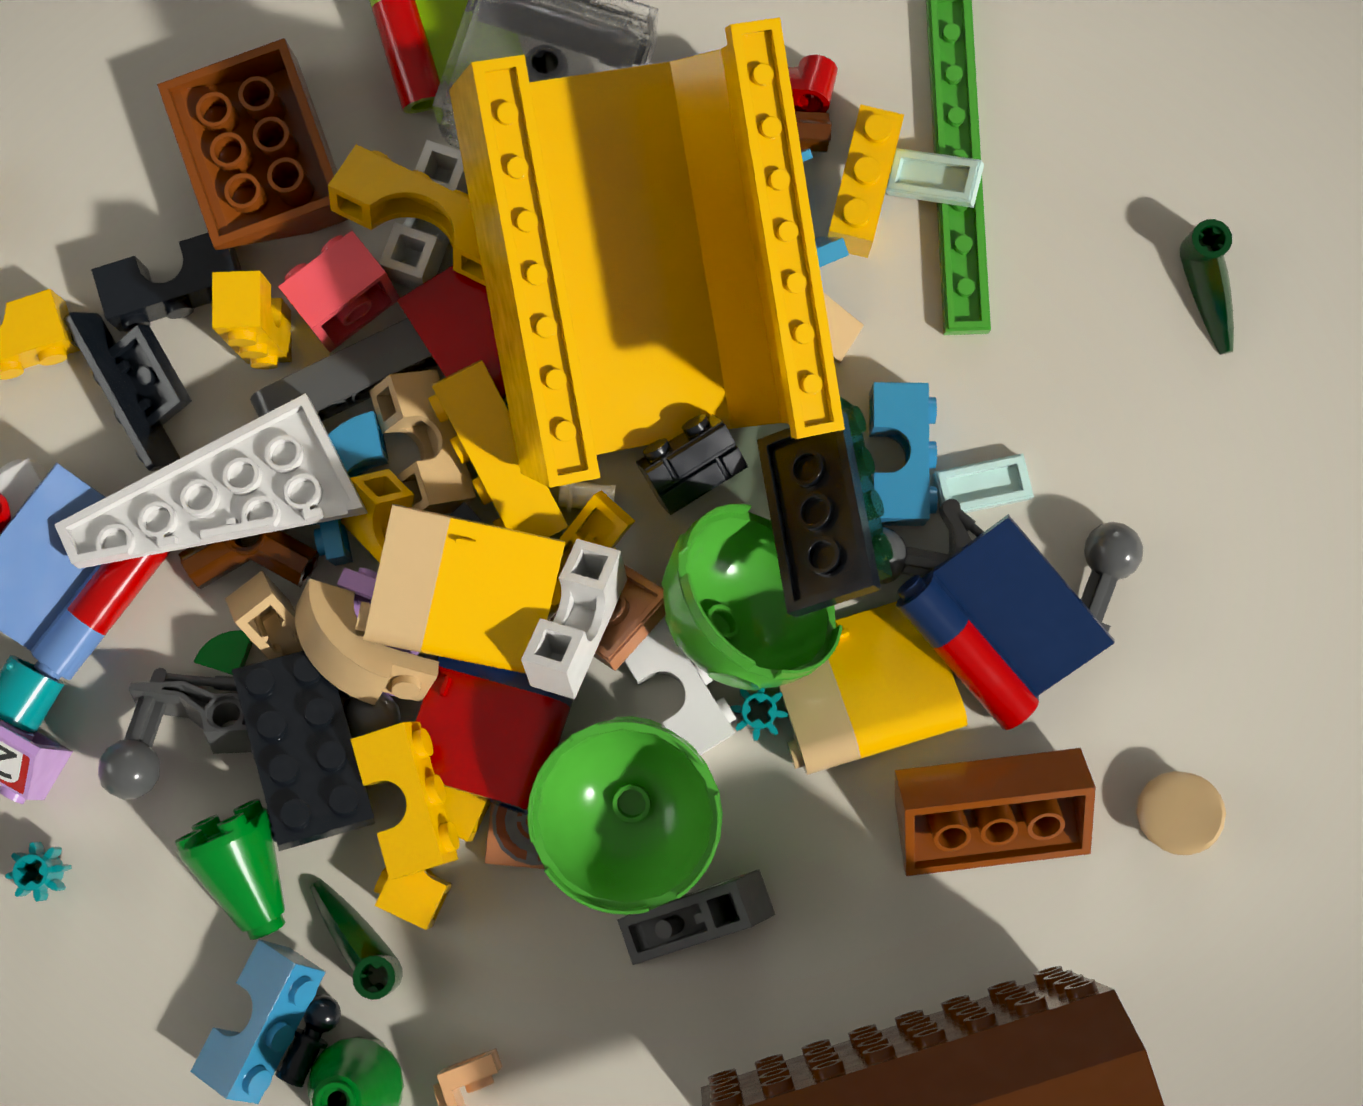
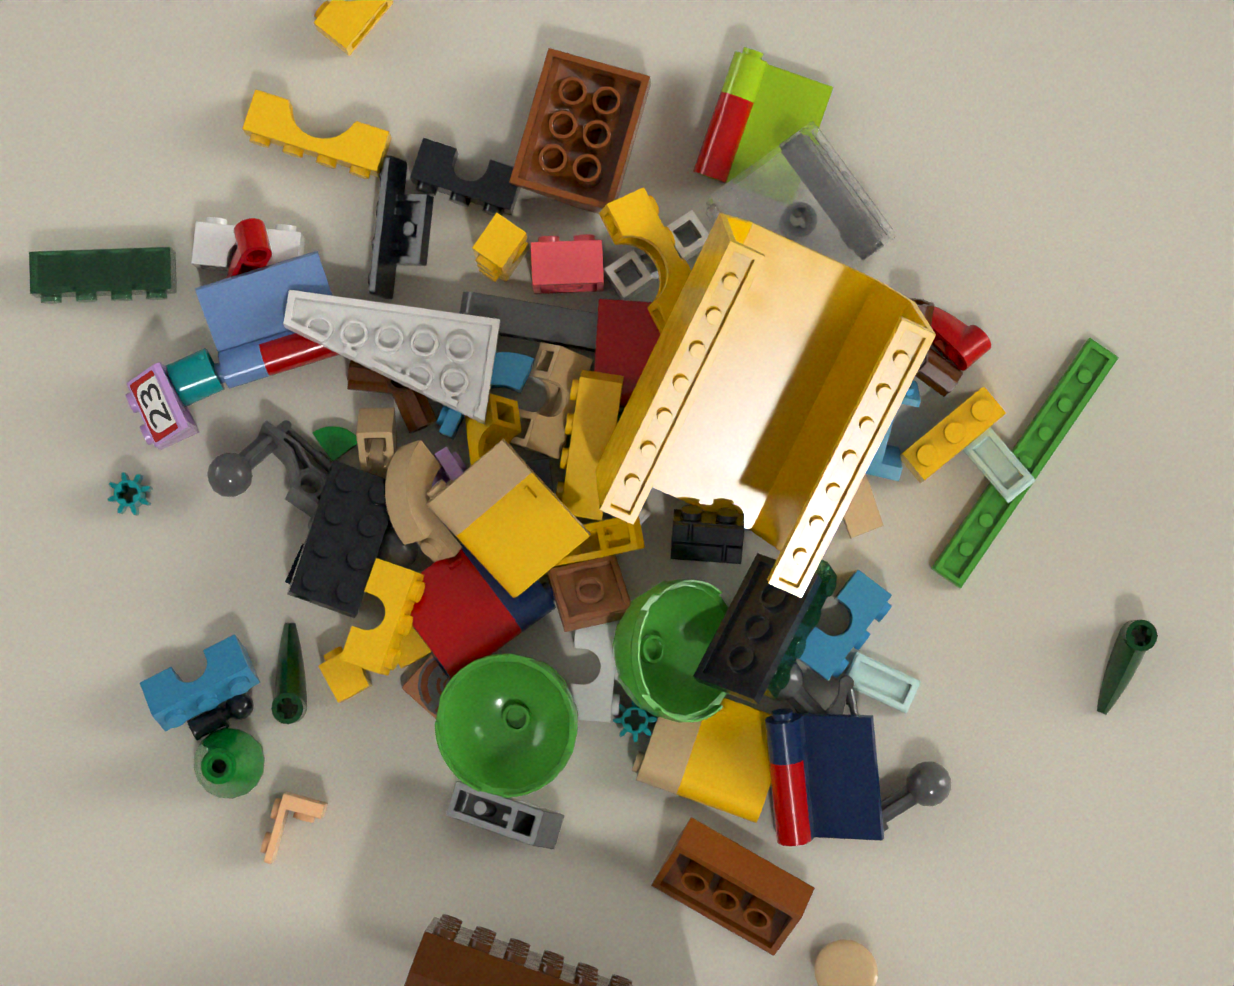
camera: 35 degrees right, 5 degrees up
(238, 867) = (253, 580): green cone -> none
(589, 592) = (547, 596): white arch -> none

